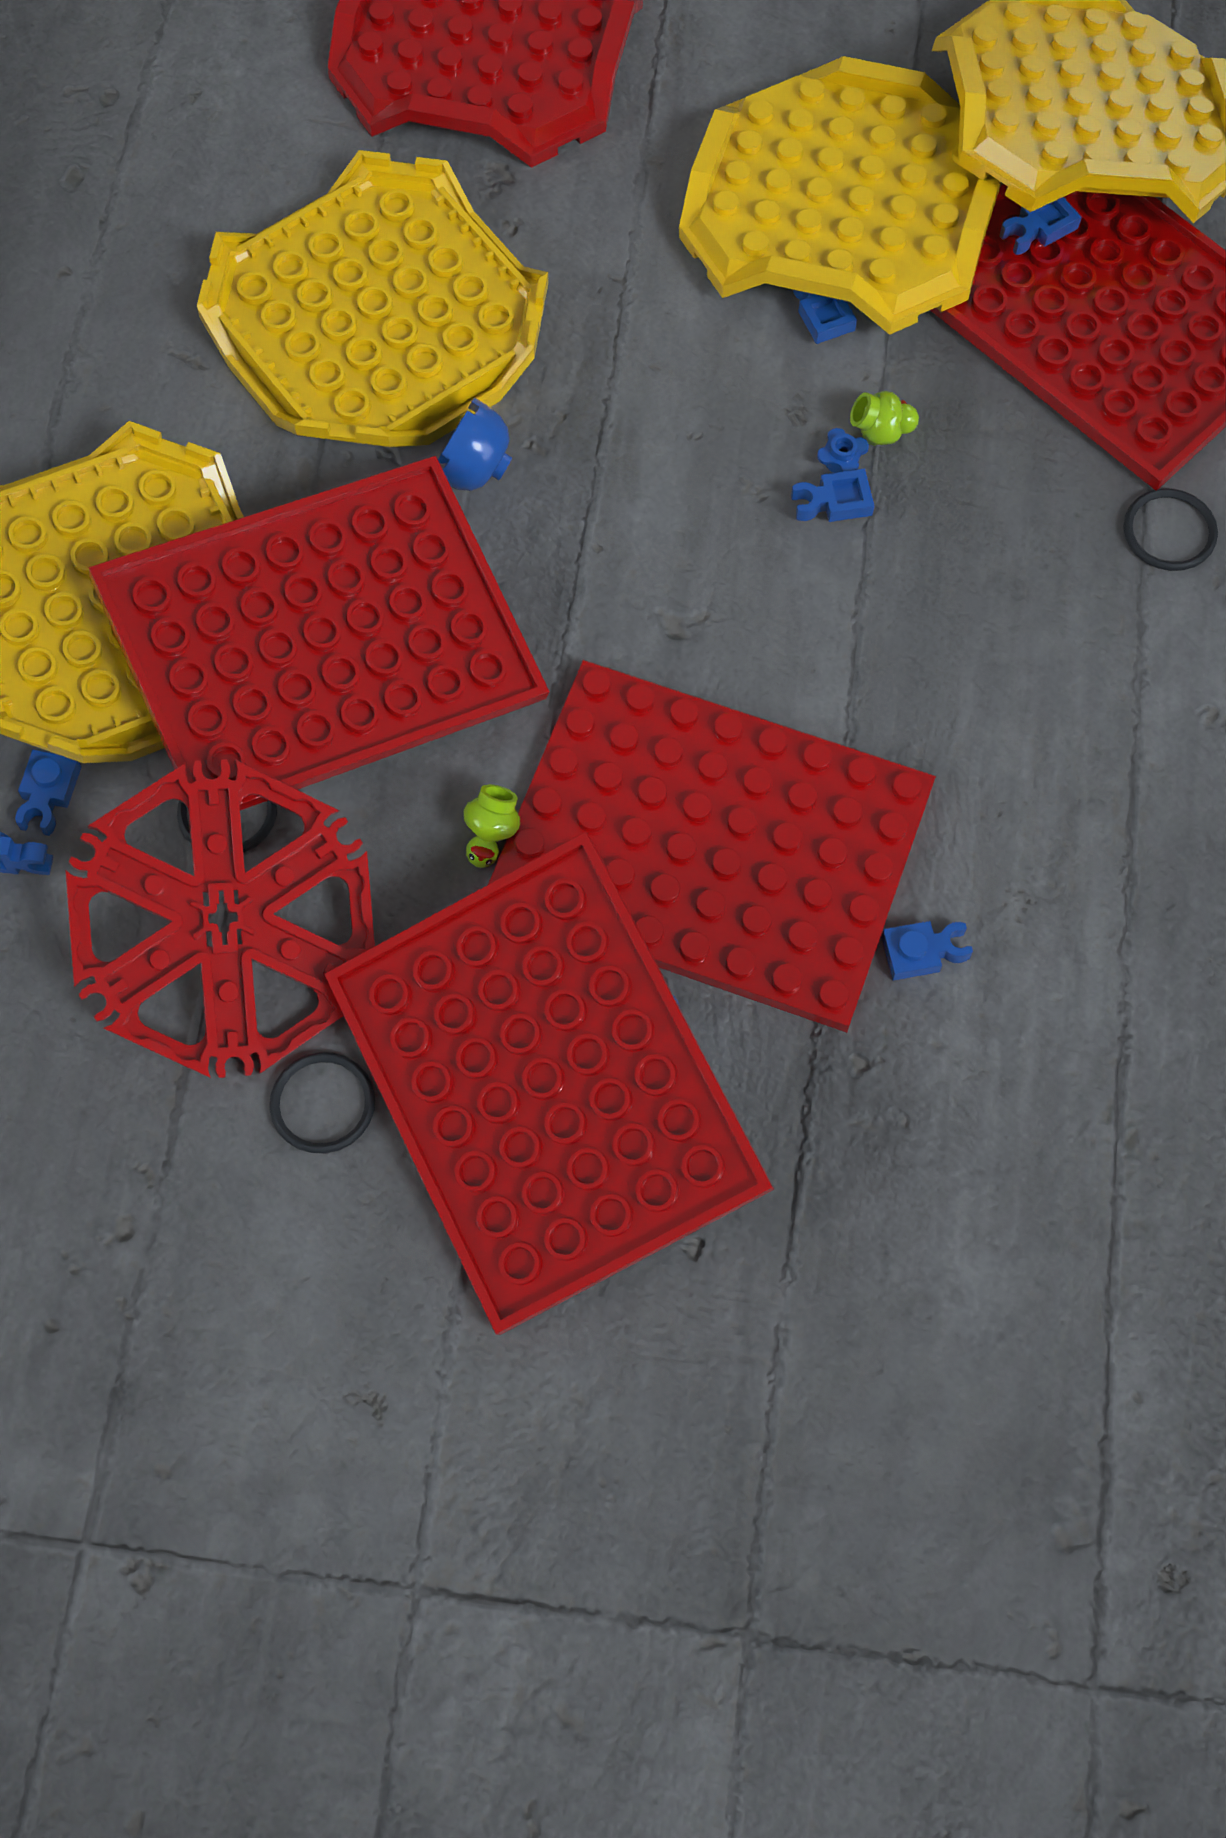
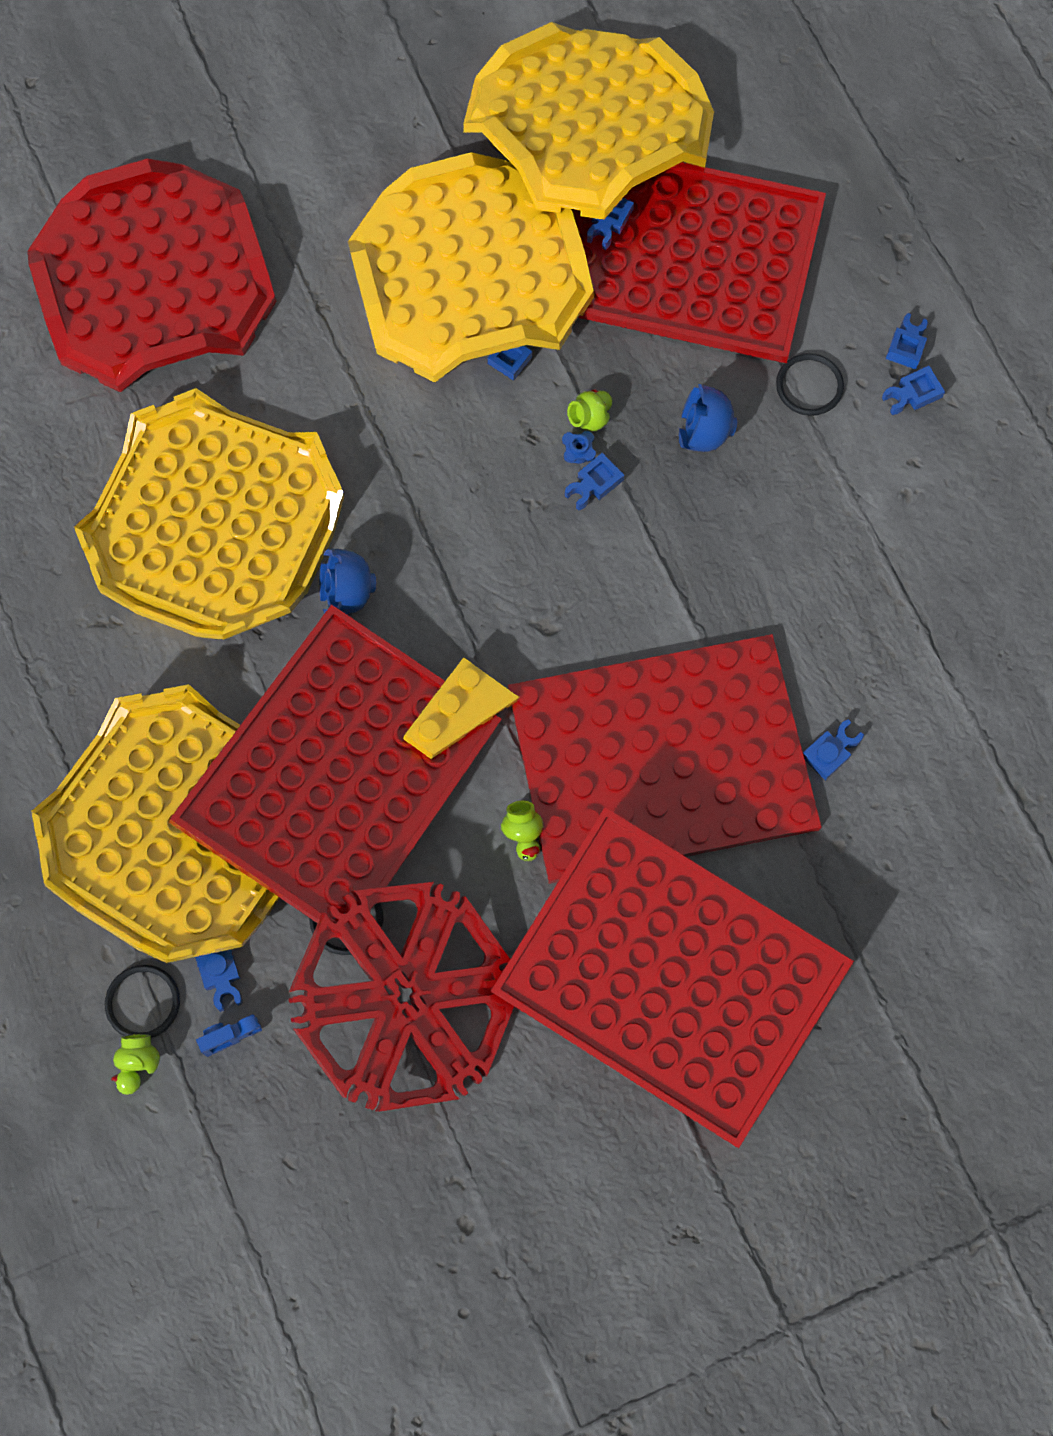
camera: 30 degrees left, 5 degrees up
(351, 1137) = (535, 1104): black tyre -> none
(503, 645) = (458, 707): none -> yellow wing
(1014, 496) = (708, 420): none -> blue cylinder

